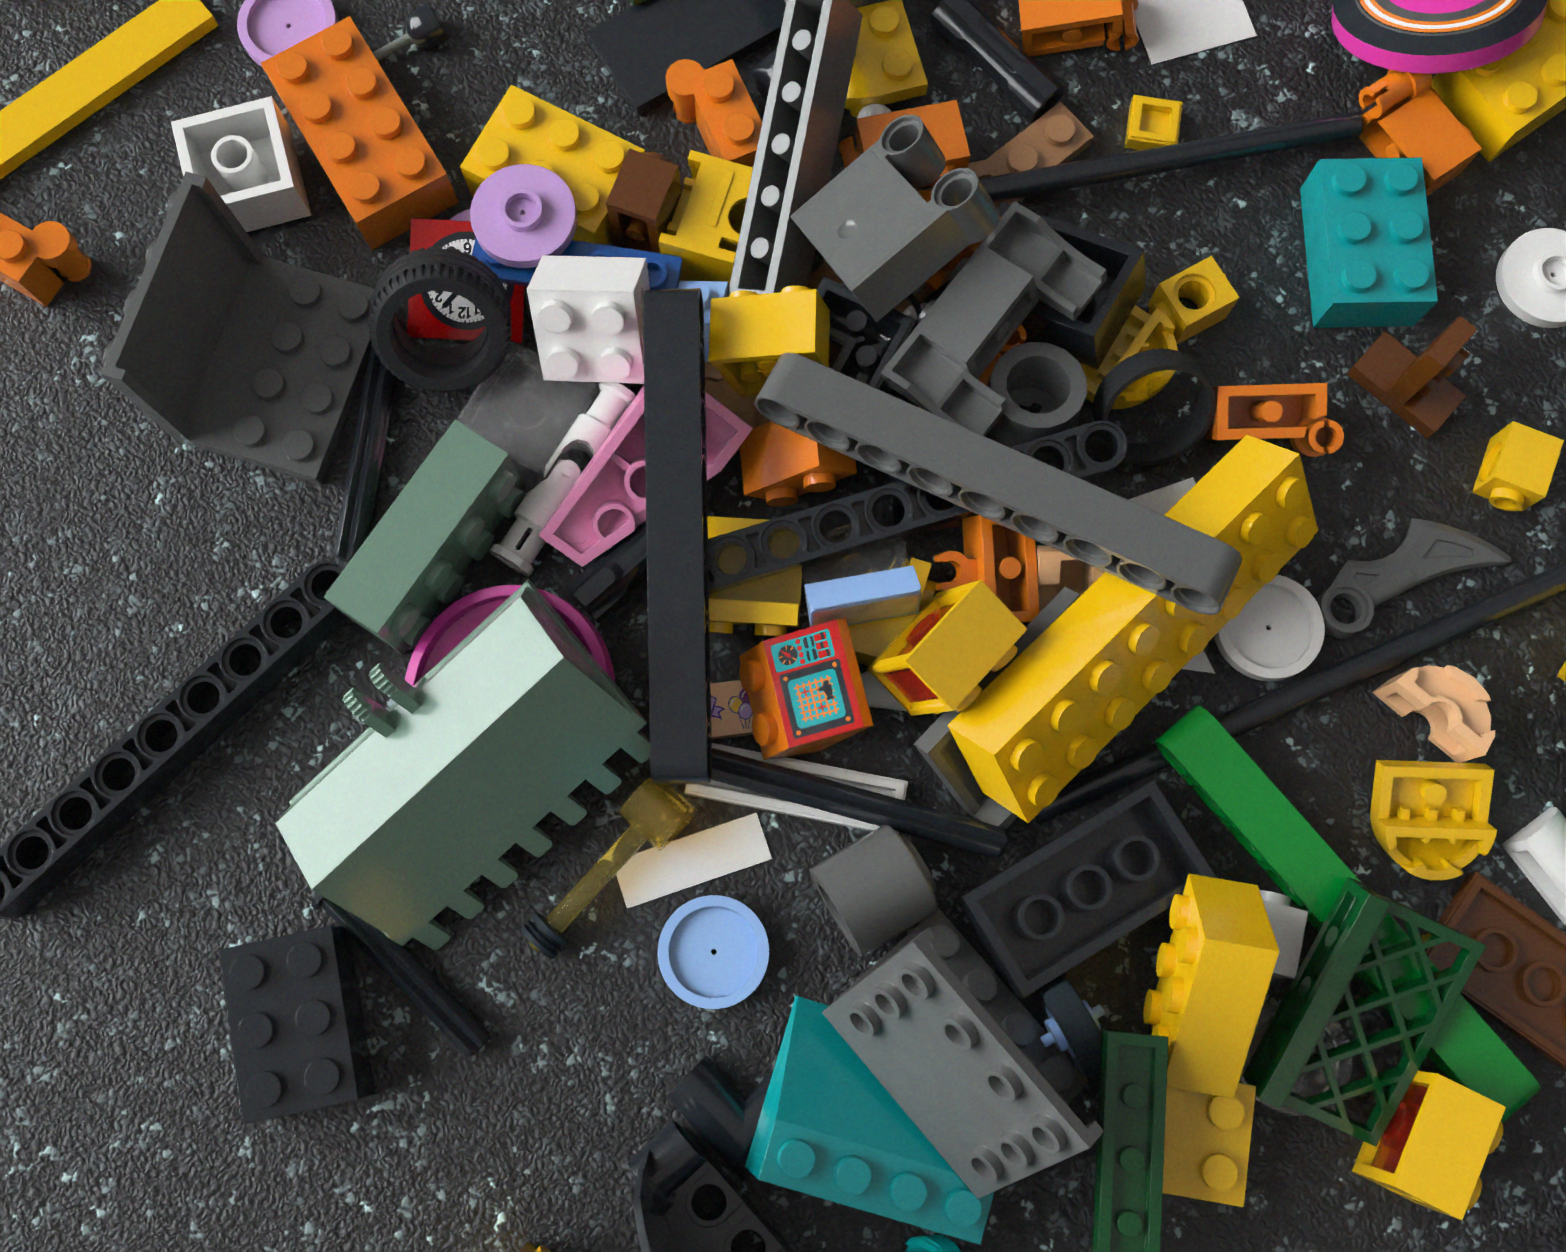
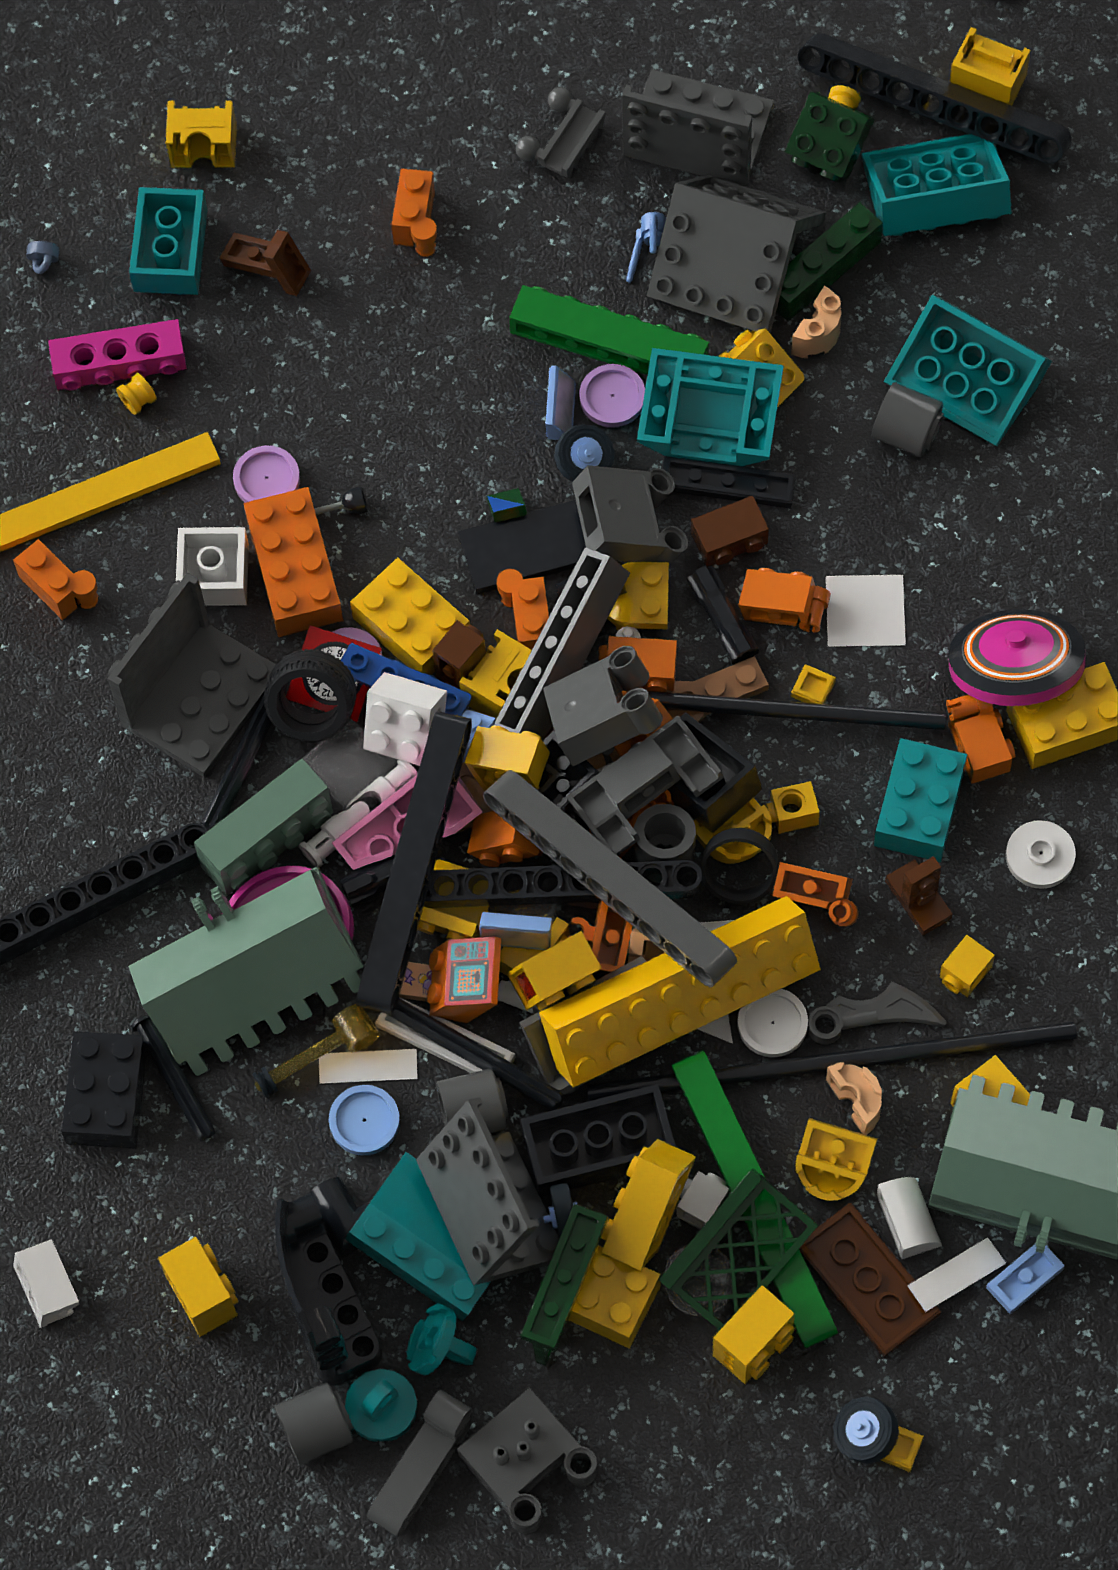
camera: 20 degrees right, 10 degrees down
(518, 238) = (374, 658): lavender piece -> none

